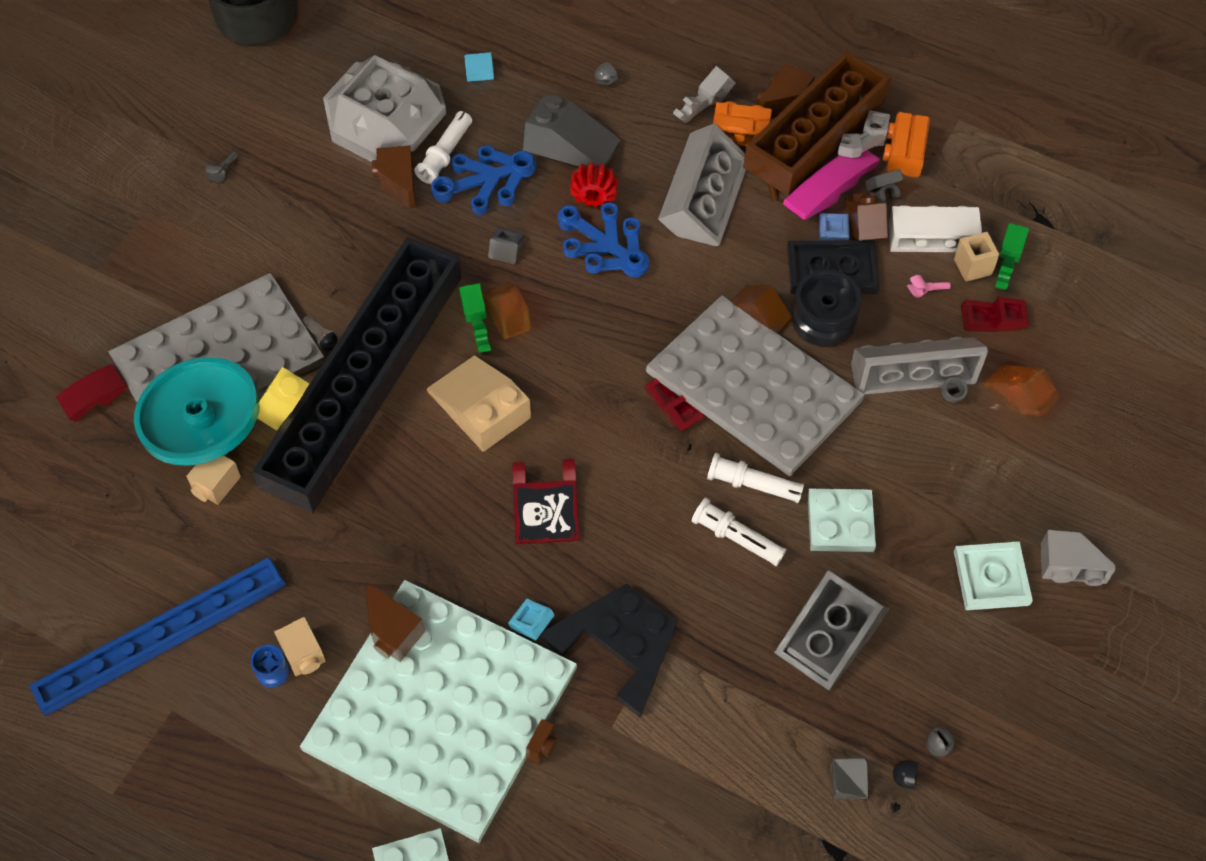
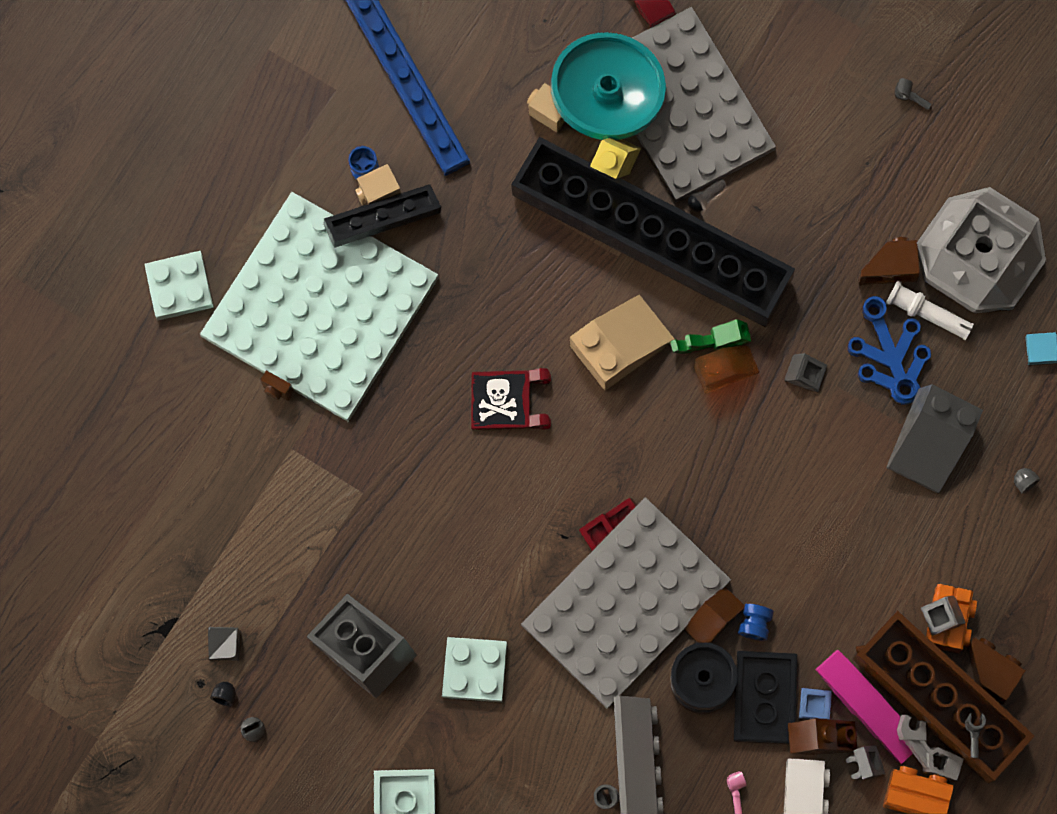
camera: 100 degrees right, 15 degrees up
(336, 638) = (382, 215): none -> black plate
(391, 625) = (385, 258): reddish brown slope -> none
(531, 619) = (392, 382): medium azure tile -> none
(594, 184) = (866, 457): red gear -> none
(604, 243) = (802, 469): blue plant -> none
(627, 628) = (377, 469): black wing -> none
(704, 187) = (866, 572): light grey slope -> none
(710, 91) = (996, 590): light grey piece -> none
(726, 520) = (473, 559): white pin -> none
(740, 474) = (524, 578): white pin -> none
(744, 118) = (943, 615): none -> dark grey slope
(762, 271) = (755, 624): none -> blue wheel
(845, 86) = (974, 734): none -> dark grey hand

